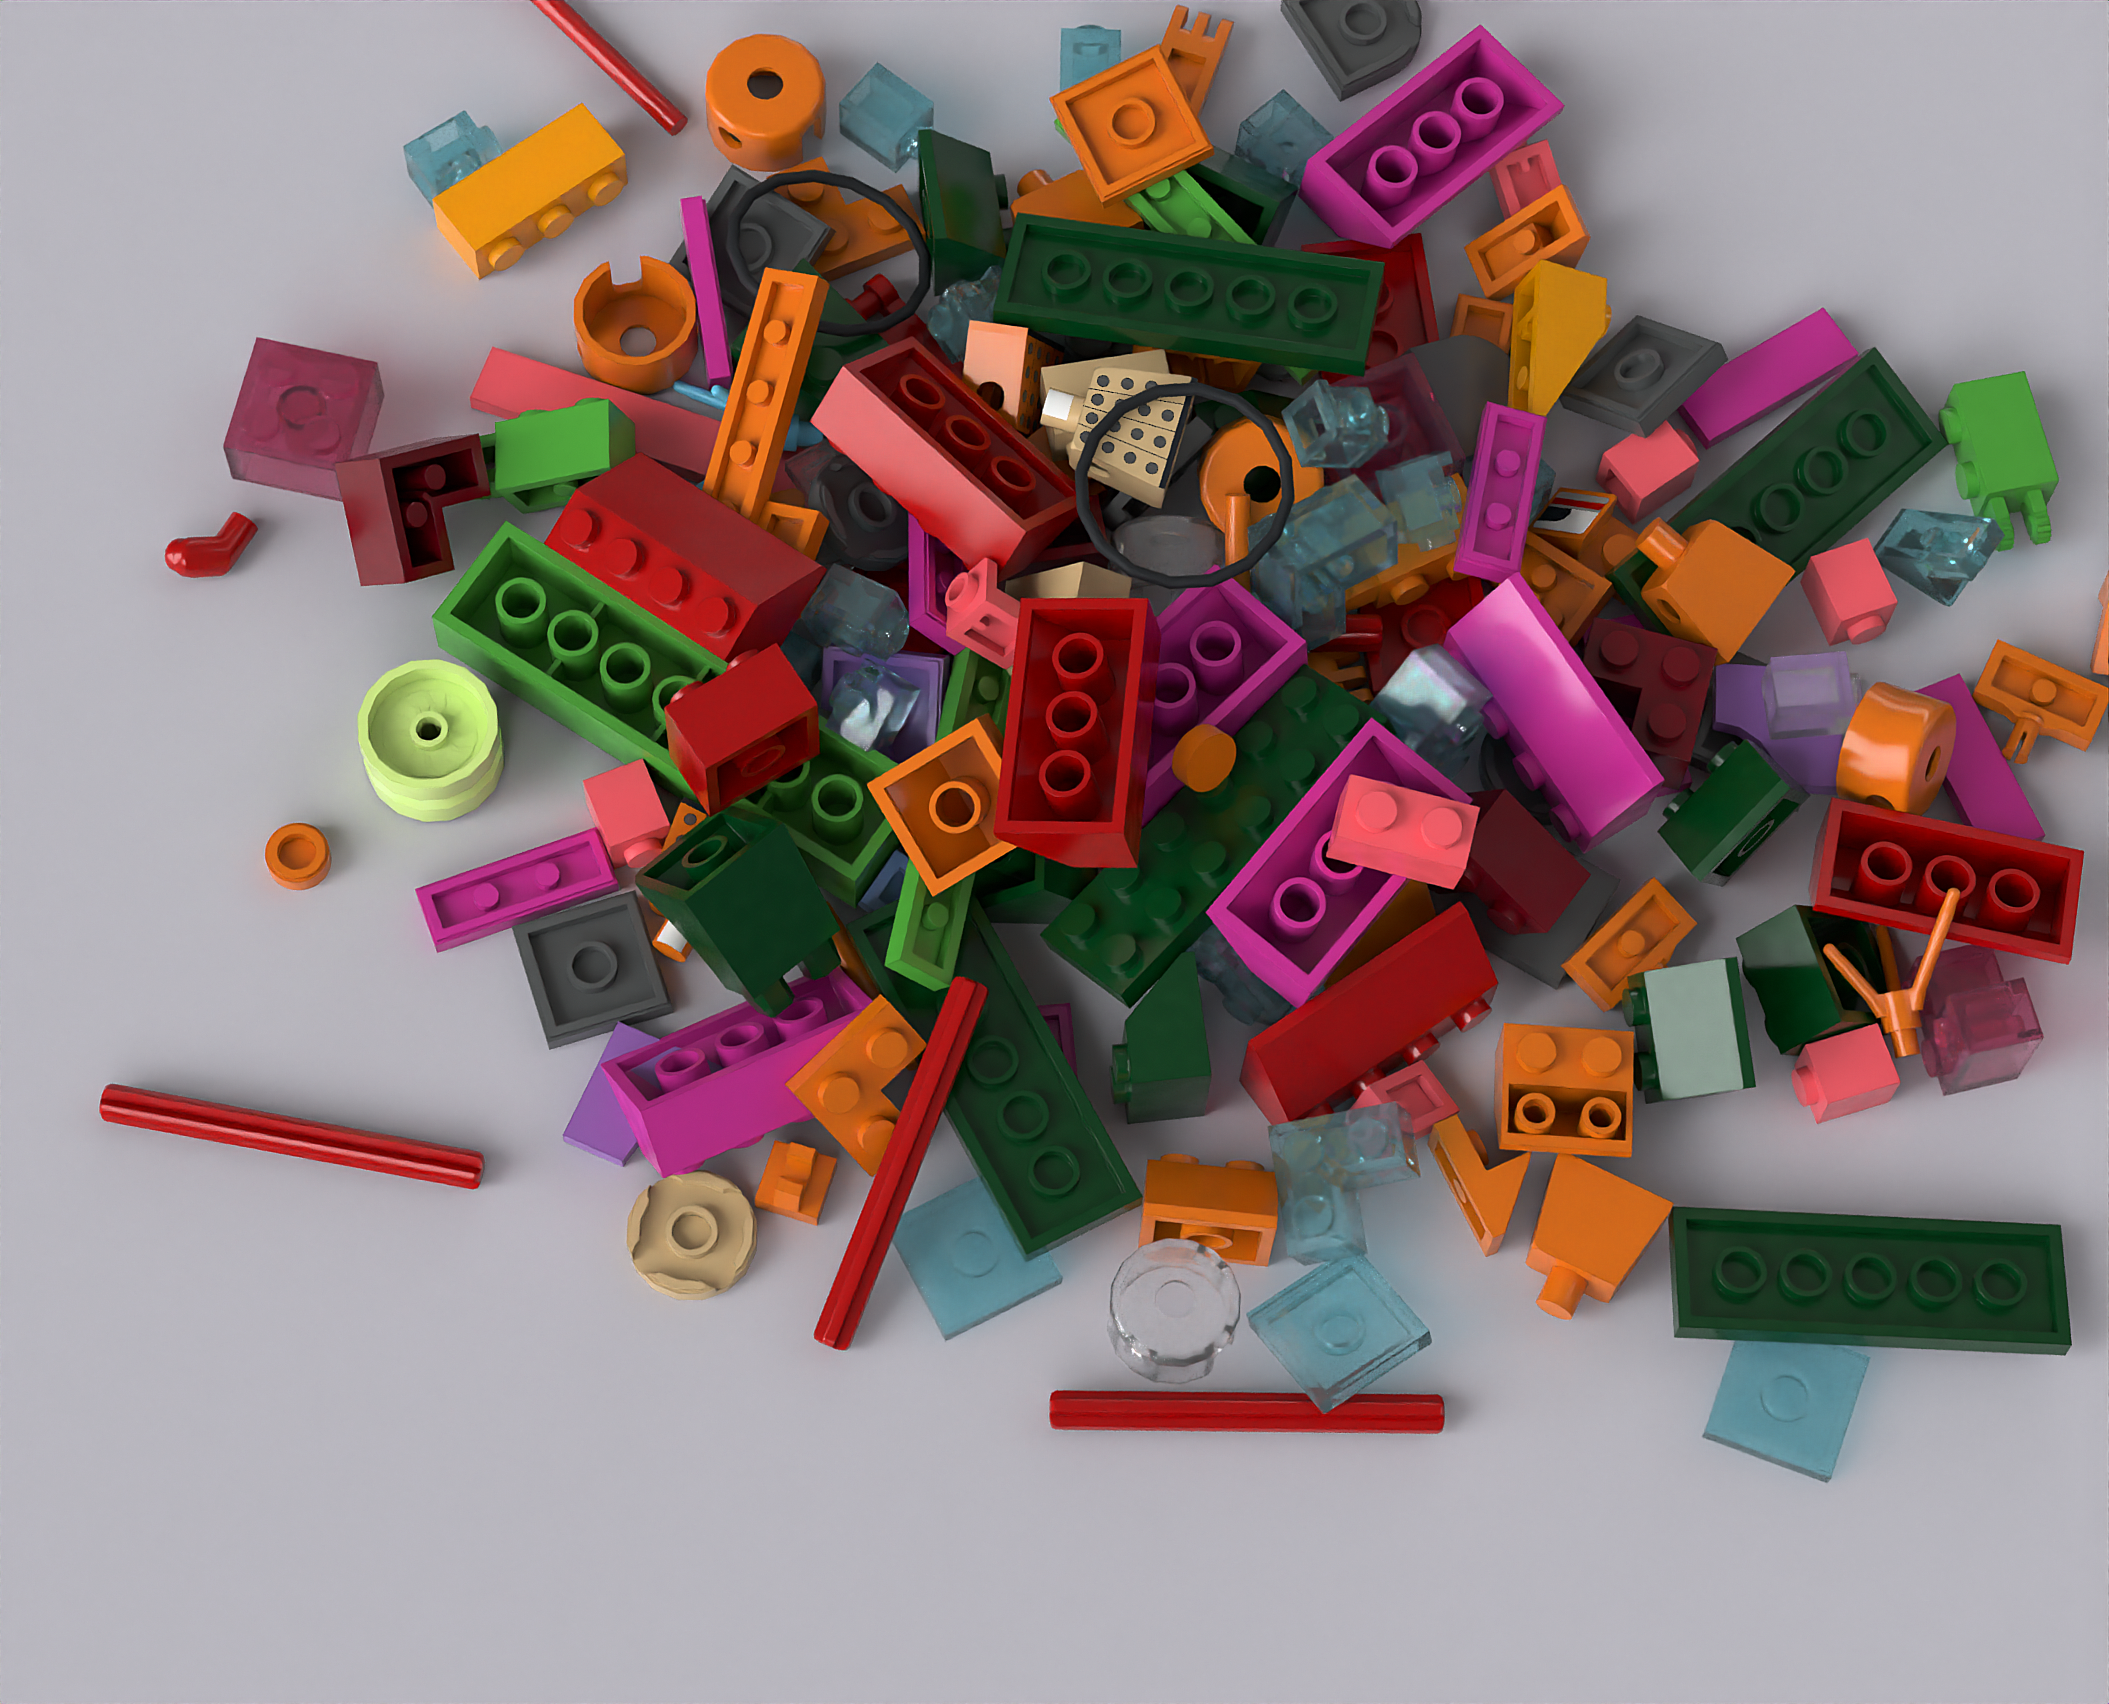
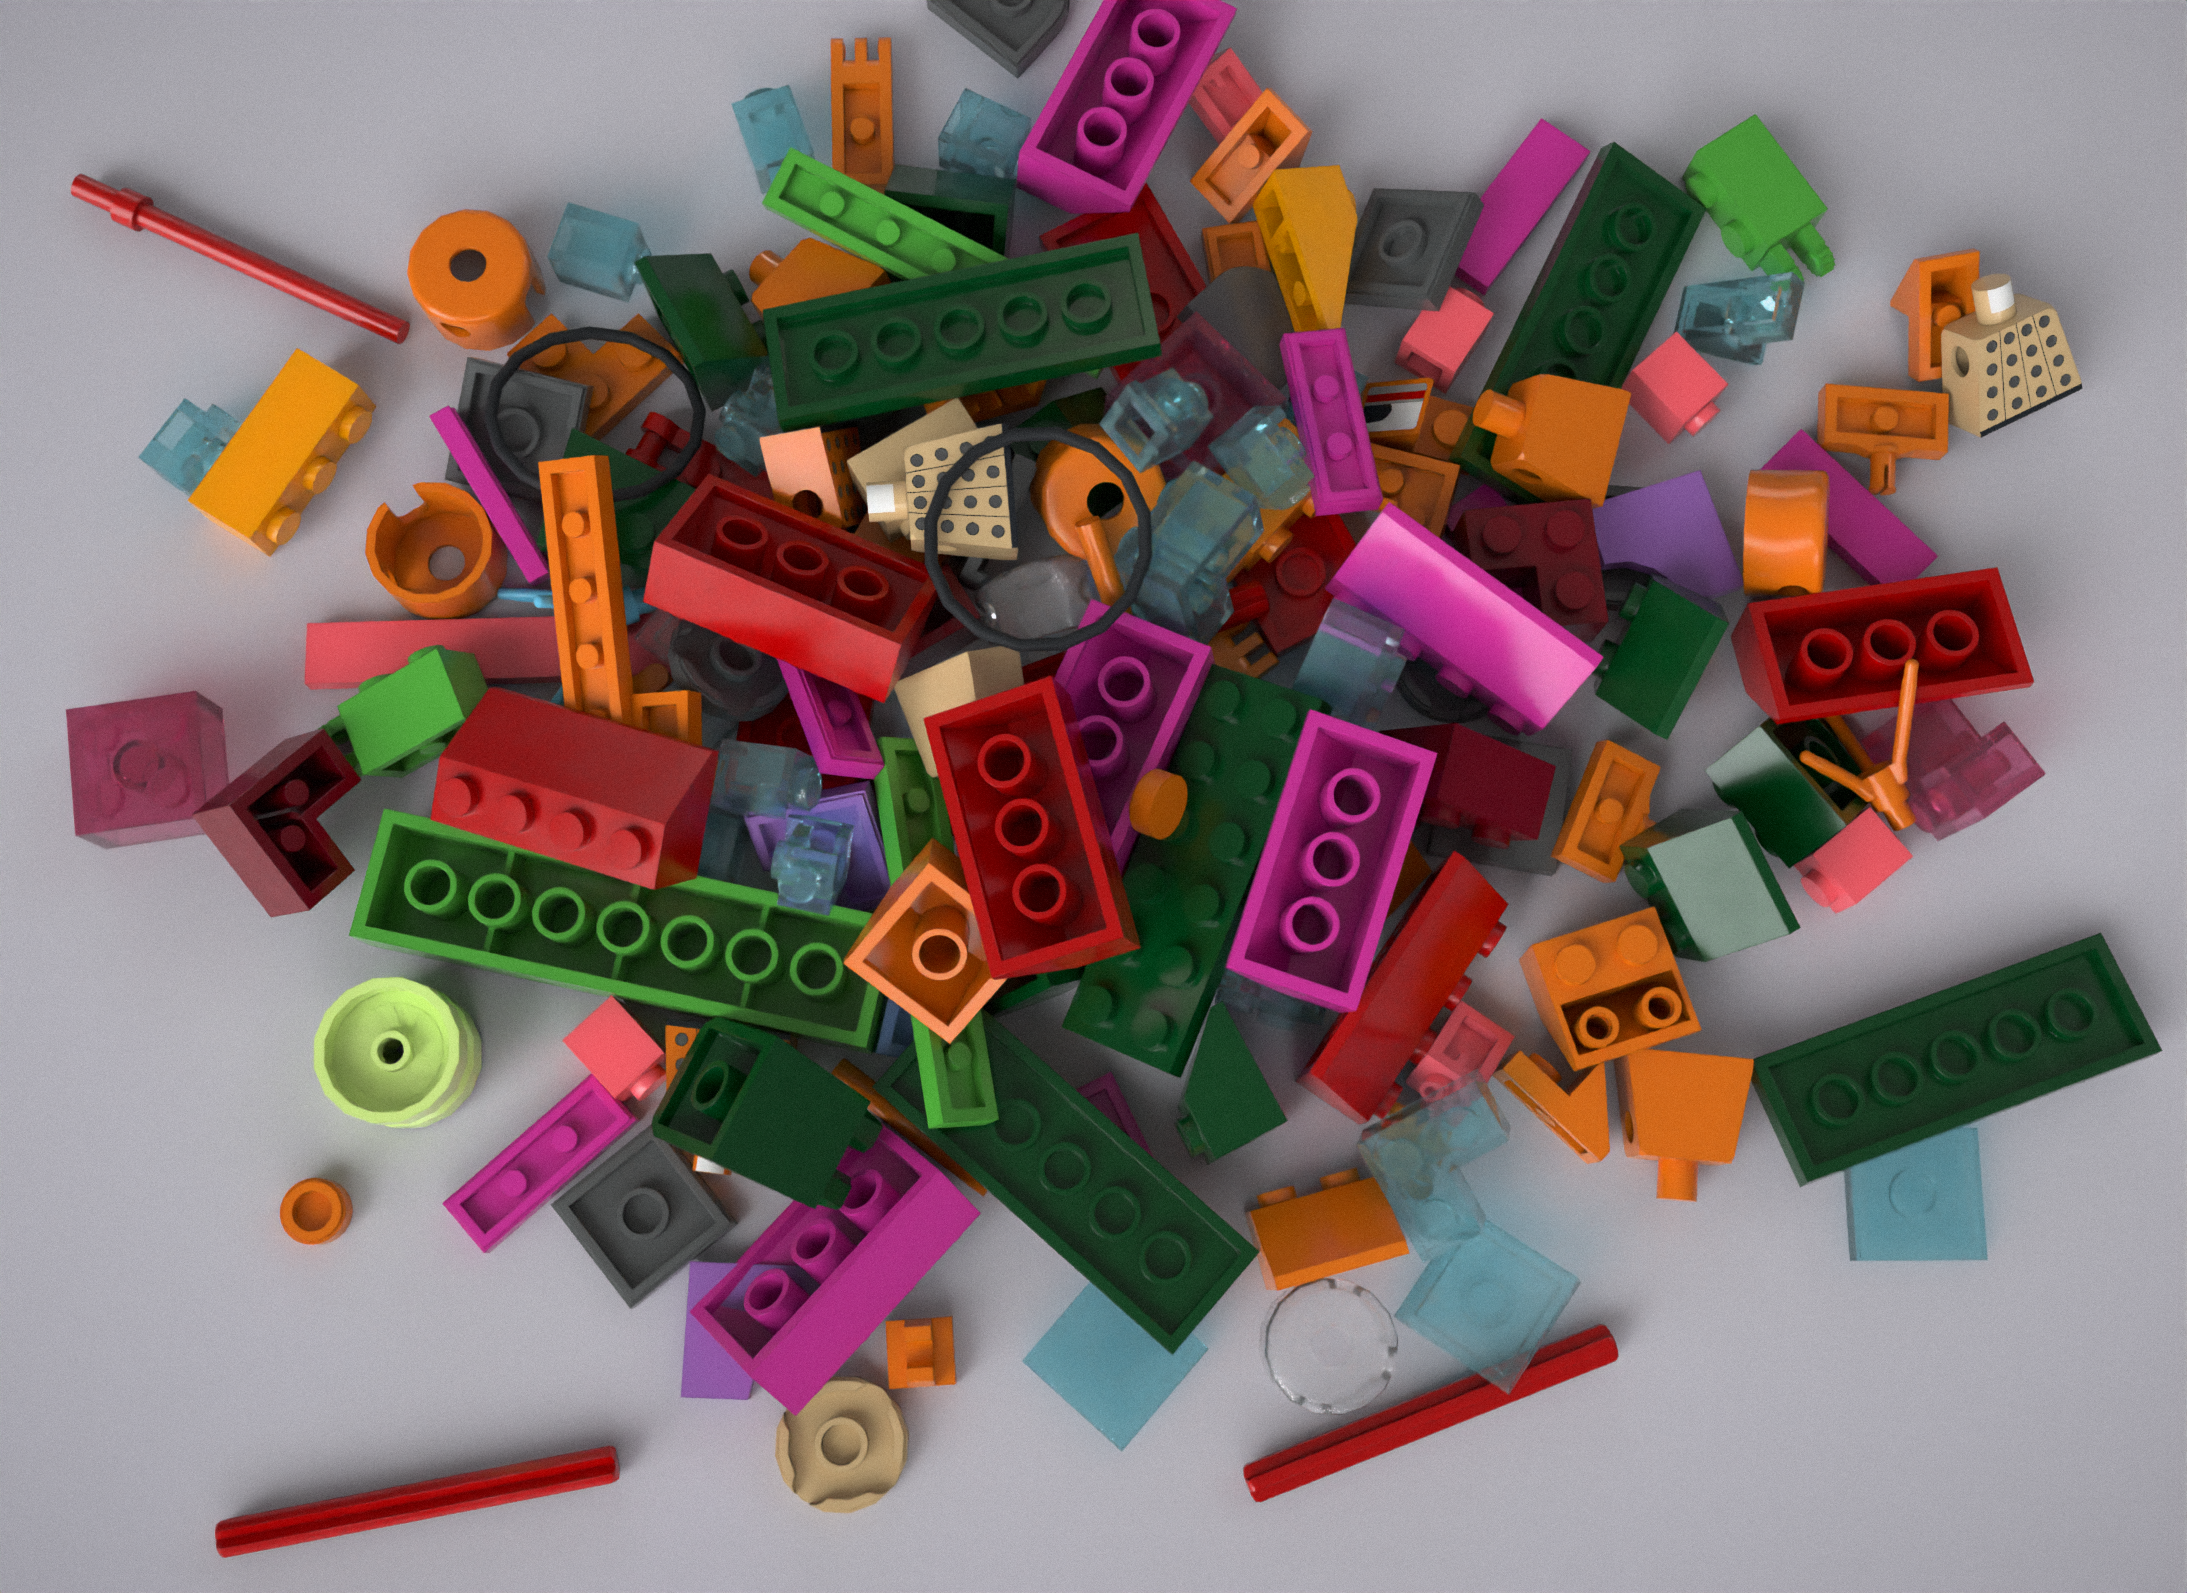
camera: 20 degrees left, 10 degrees up
(213, 554) = (112, 939): red arm -> none
(742, 728) = (696, 948): red brick -> none
(847, 1079) = (937, 1249): orange plate -> none
(901, 1163) = (1017, 1307): red axle -> none
(982, 614) = (885, 737): coral bracket -> none
(1131, 126) = (839, 181): orange tile -> none
(1402, 831) = (1391, 821): coral brick -> none
(1809, 695) = (1688, 509): clear brick -> none

